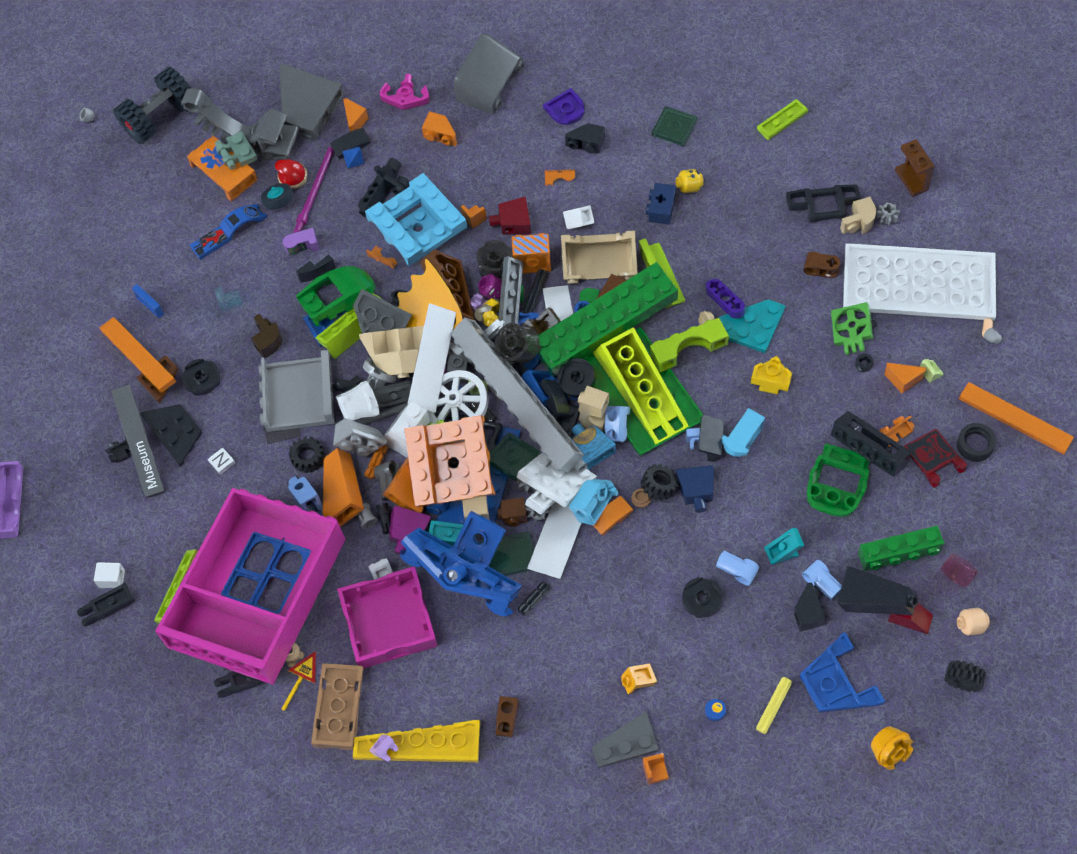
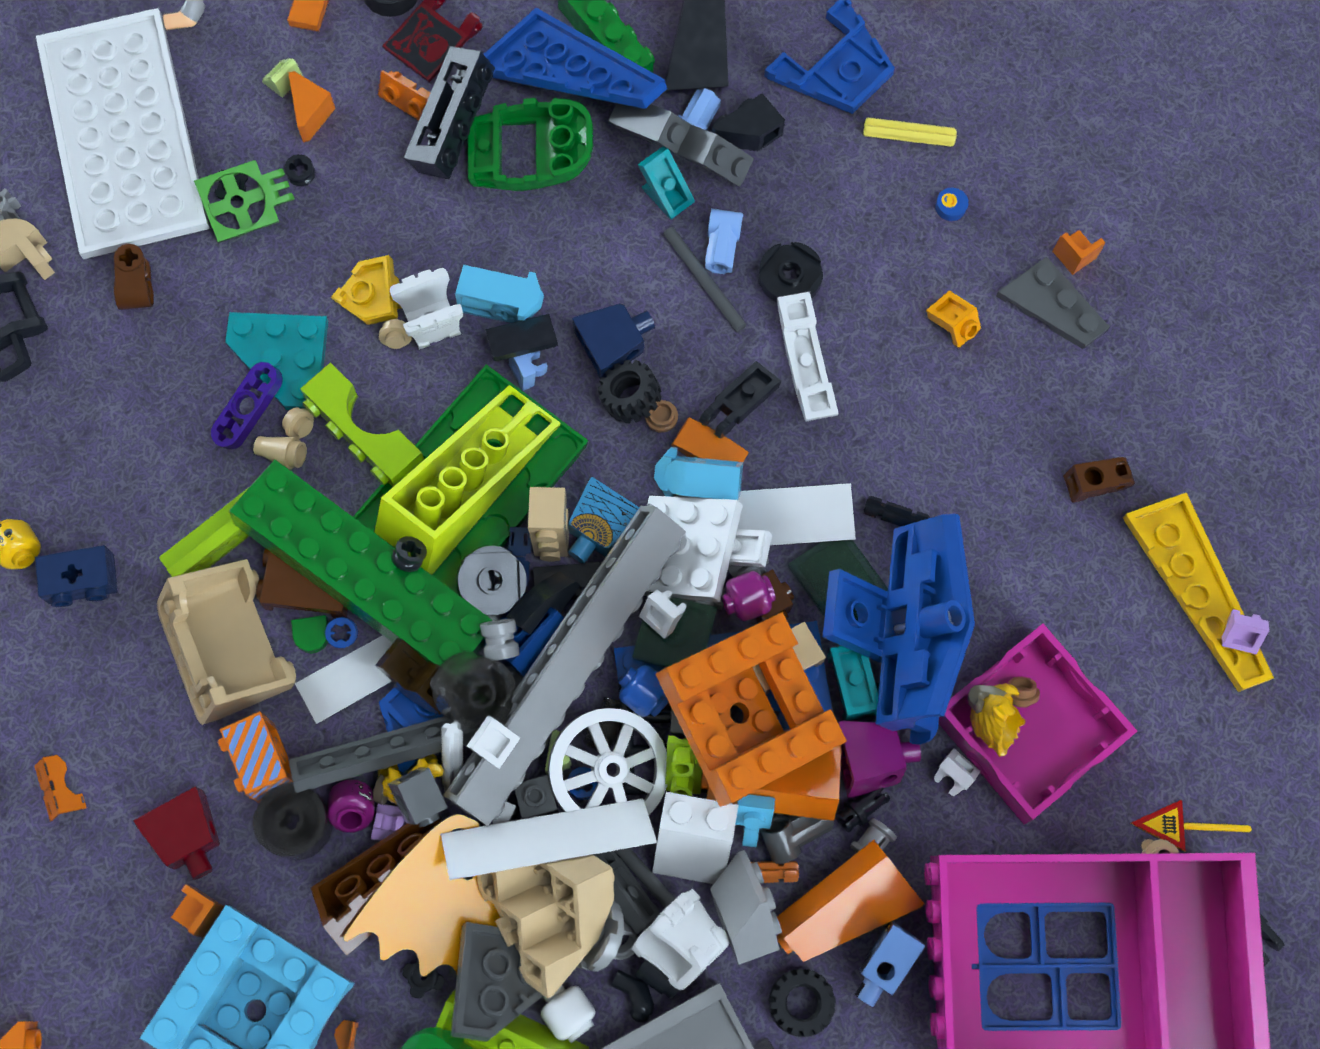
camera: 120 degrees left, 10 degrees up
(337, 706) = (1209, 737): medium nougat piece -> none
(352, 350) = (568, 1013): none -> white head
(396, 592) = (995, 716): none -> yellow hair
(399, 457) = (753, 814): none -> medium azure plate
(405, 618) = (1027, 691): none -> medium nougat plate
(477, 307) = (418, 797): none -> dark grey brick
(484, 338) = (493, 742): none -> white tile
(491, 426) = (642, 691): none -> blue head
(513, 491) = (748, 596): none -> magenta head
(519, 448) = (661, 612): none -> white tile
(535, 291) = (331, 731): black axle -> none
(539, 364) = (500, 639): none -> light grey wheel
(578, 217) = (146, 712): white panel -> none
(599, 329) = (400, 554): none -> black bush
(616, 422) = (569, 481): light blue leg -> none
(633, 539) = (741, 398): none -> black hinge
(644, 586) = (805, 357): none -> white slope
(693, 309) = (286, 450): none -> tan cone
(717, 551) = (704, 279): none -> dark grey bar
(741, 379) = (393, 334): none -> tan plate
(754, 396) = (427, 307): none -> white piece
(812, 553) = (684, 140): none -> dark grey arch
(886, 512) = (561, 59): none -> blue wing

